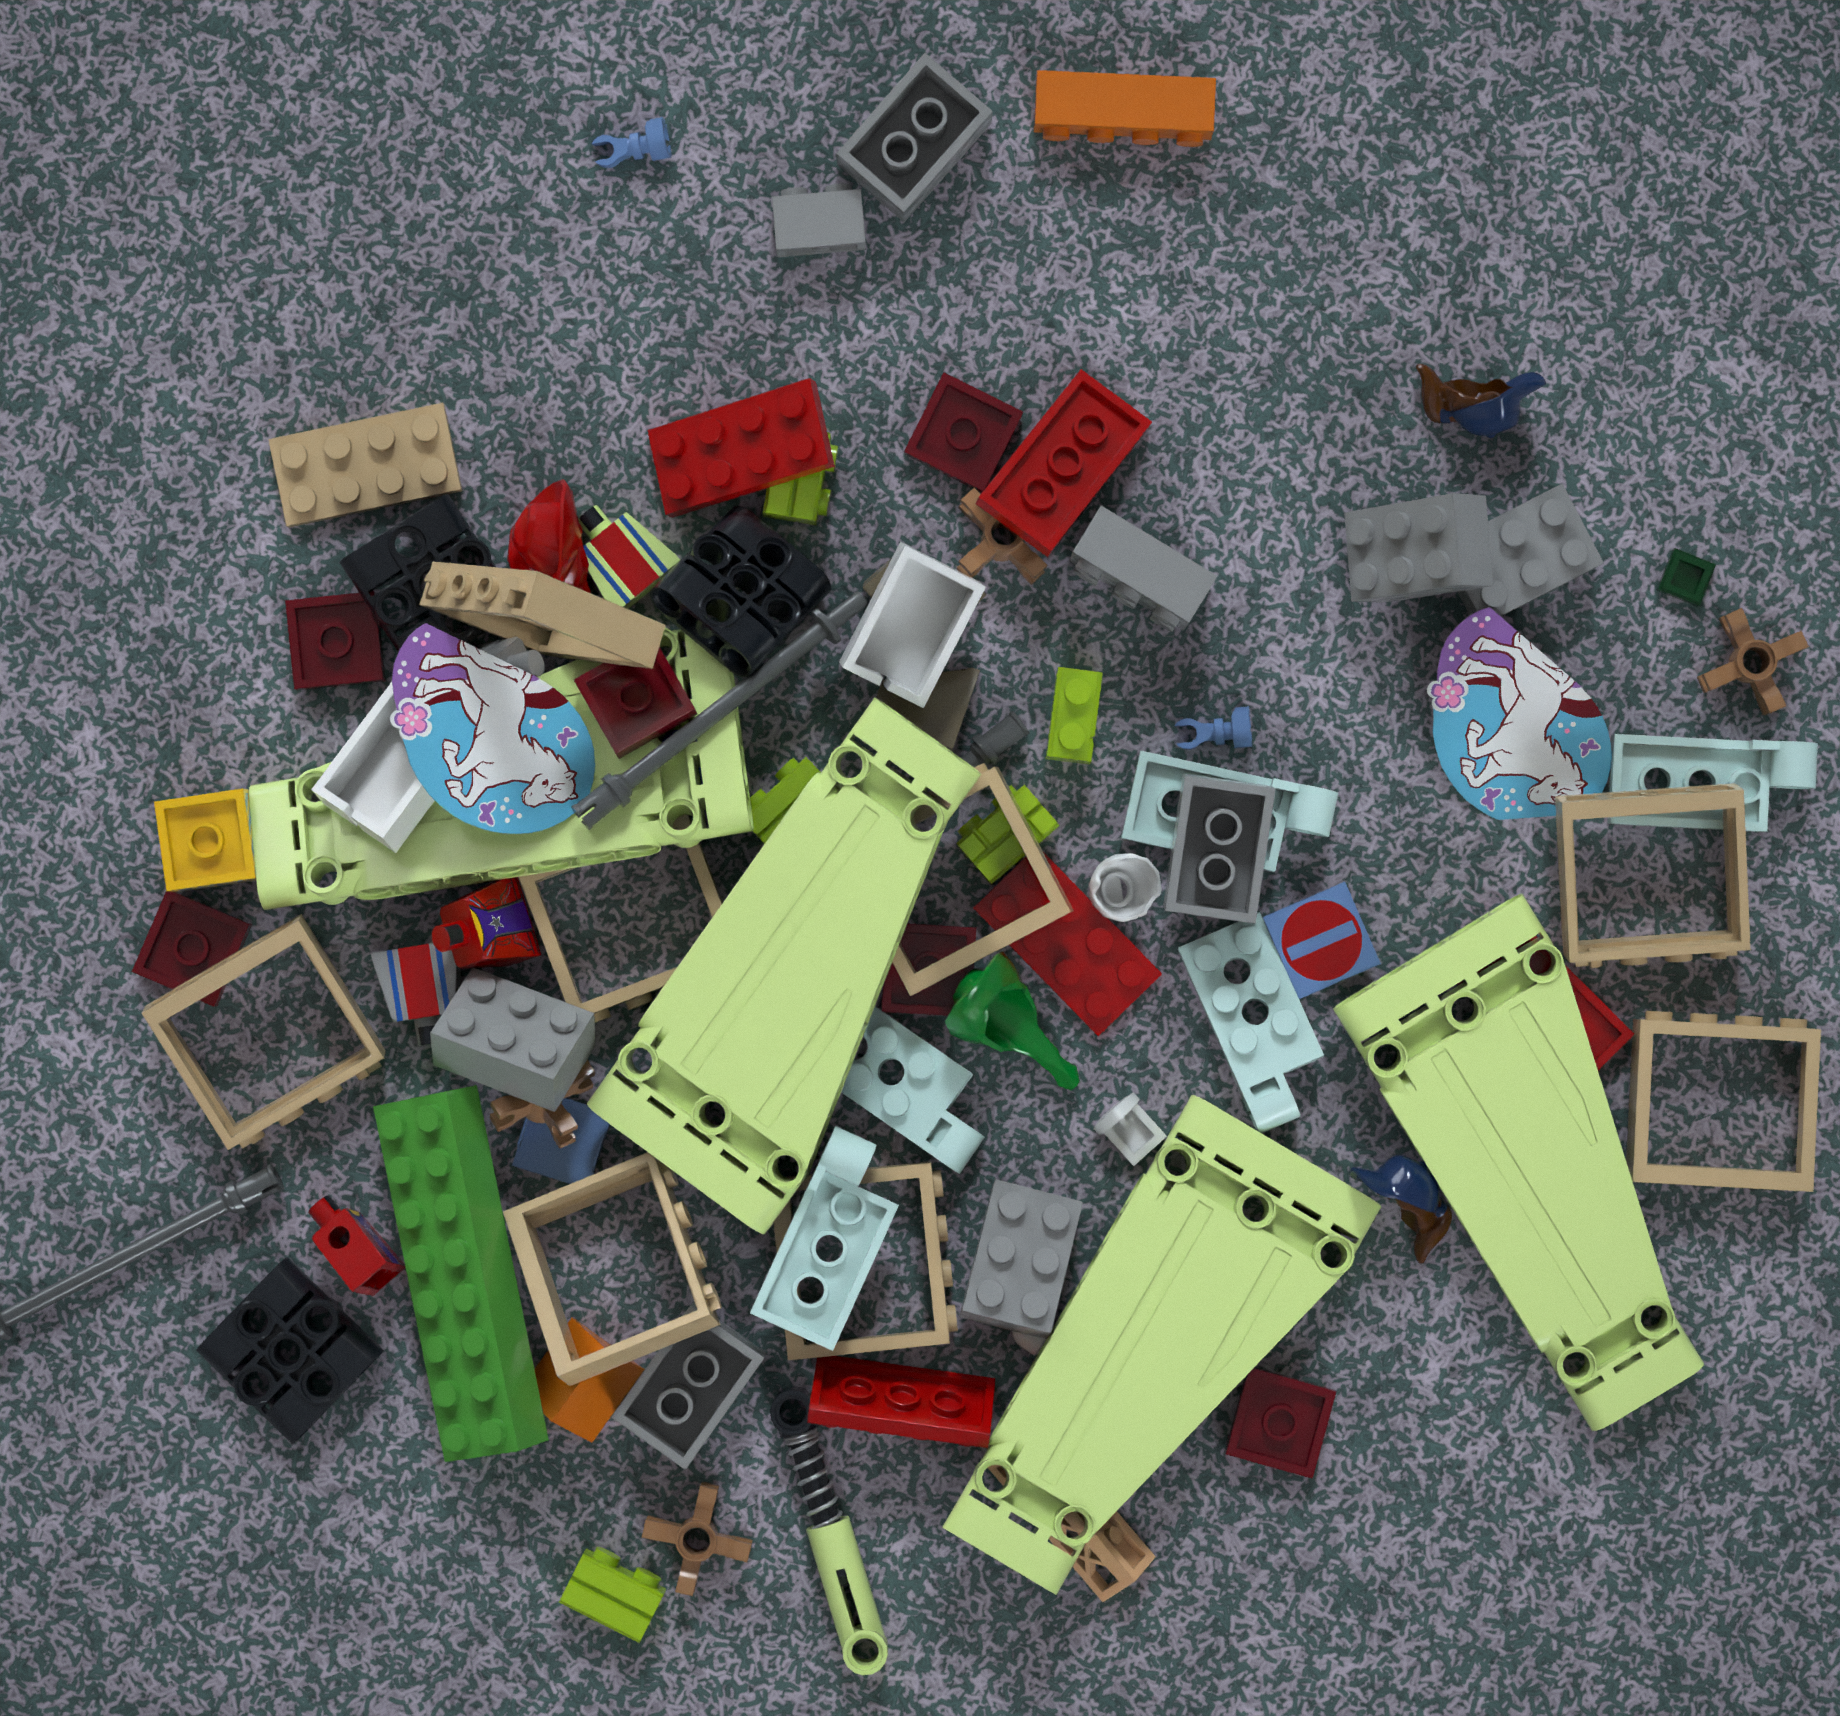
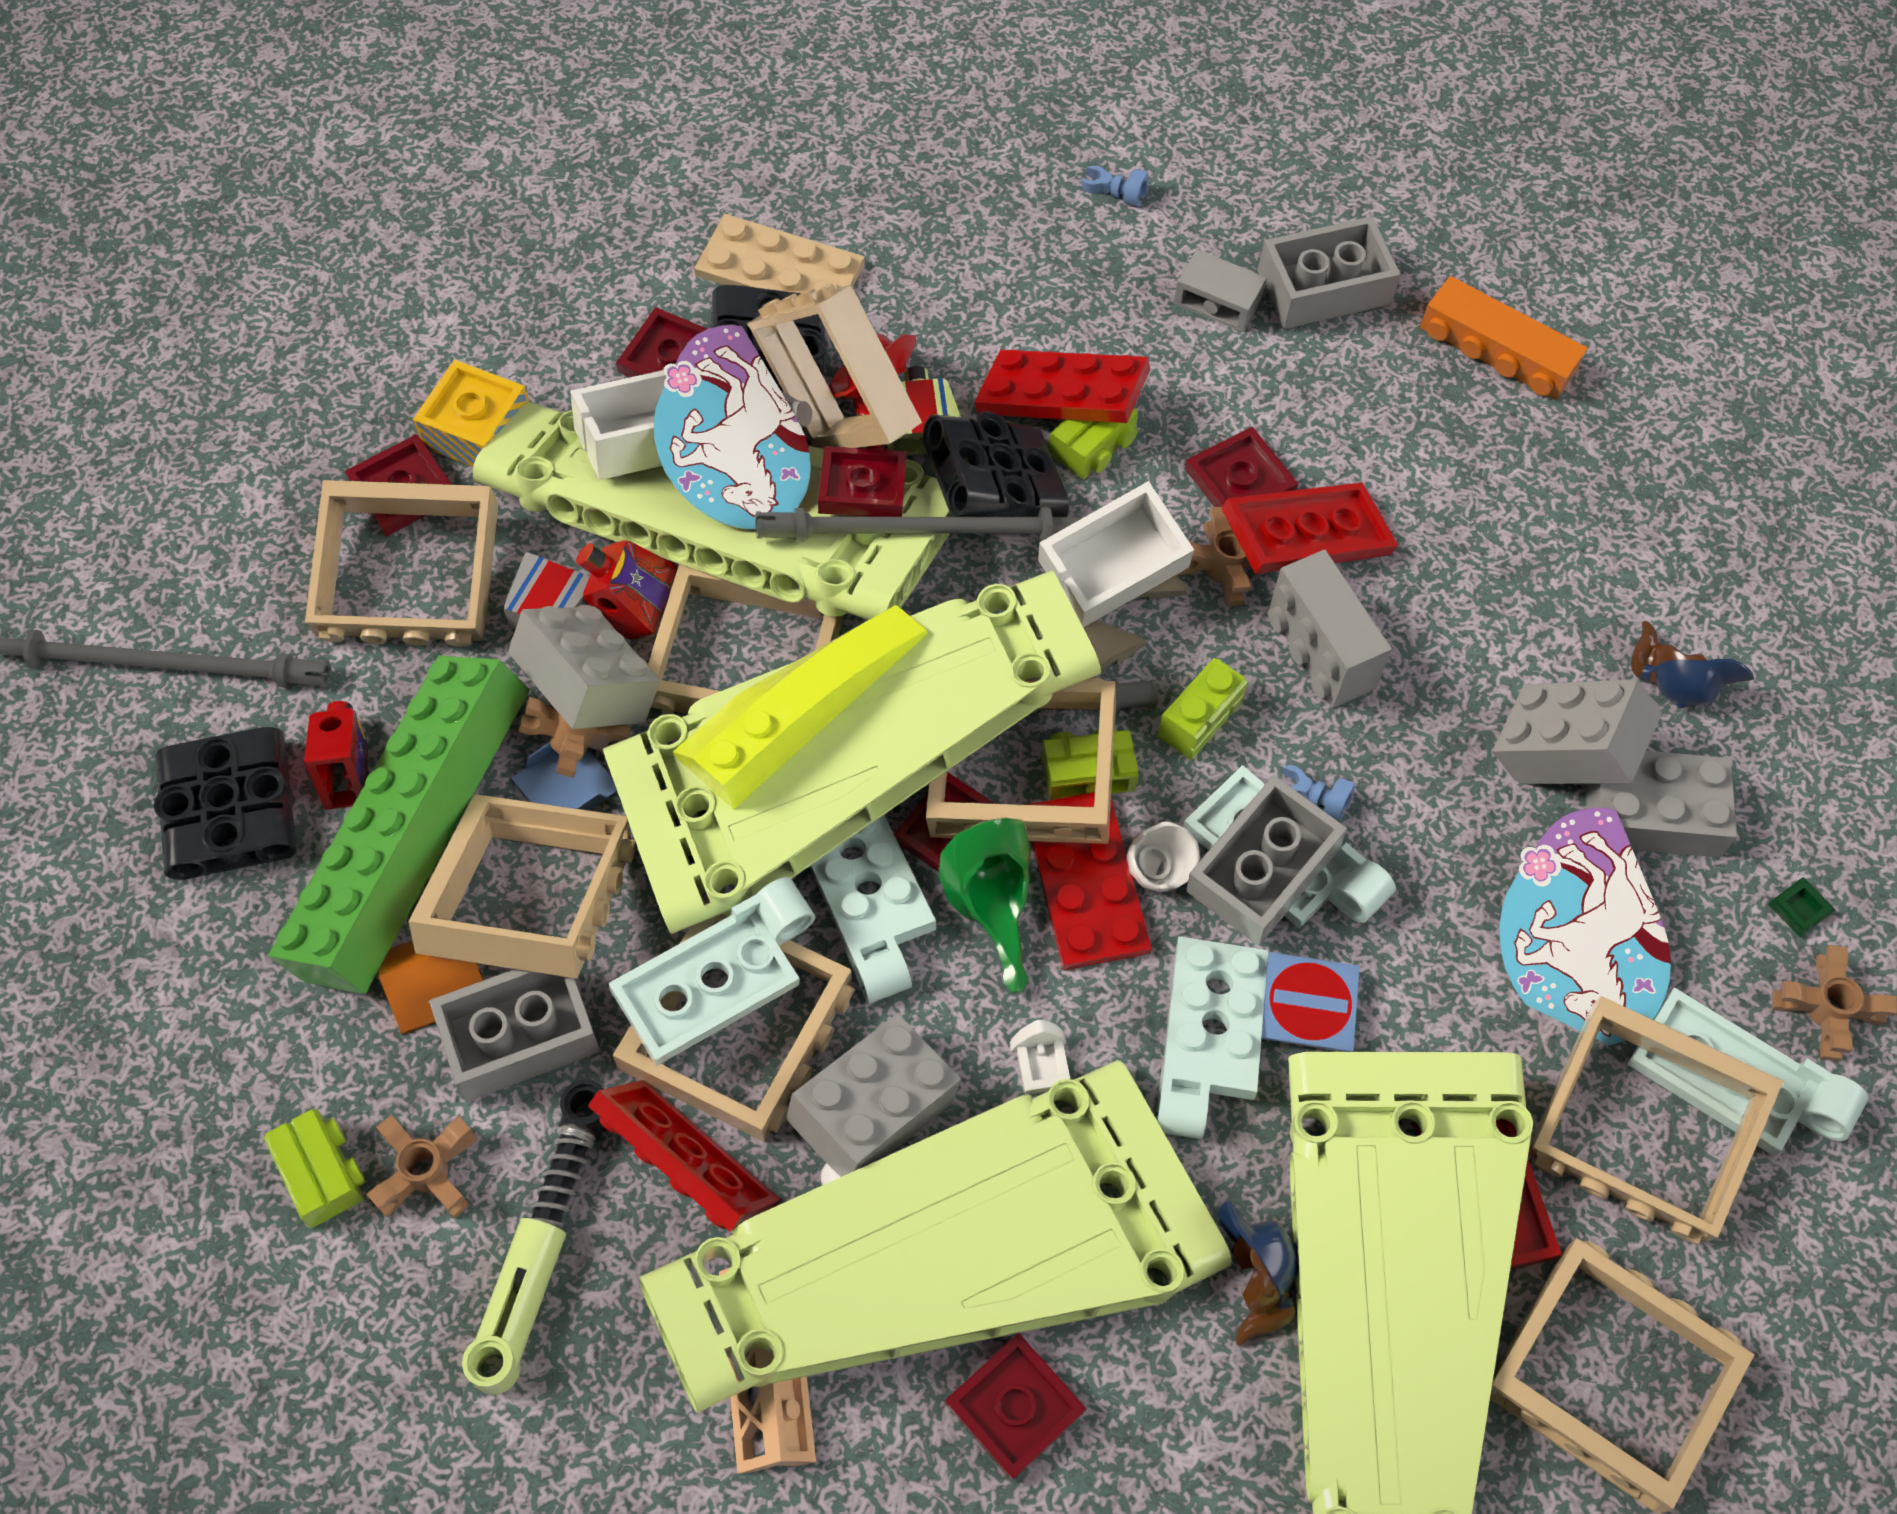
camera: 30 degrees right, 25 degrees down
(732, 978) = (790, 707): none -> neon yellow wedge

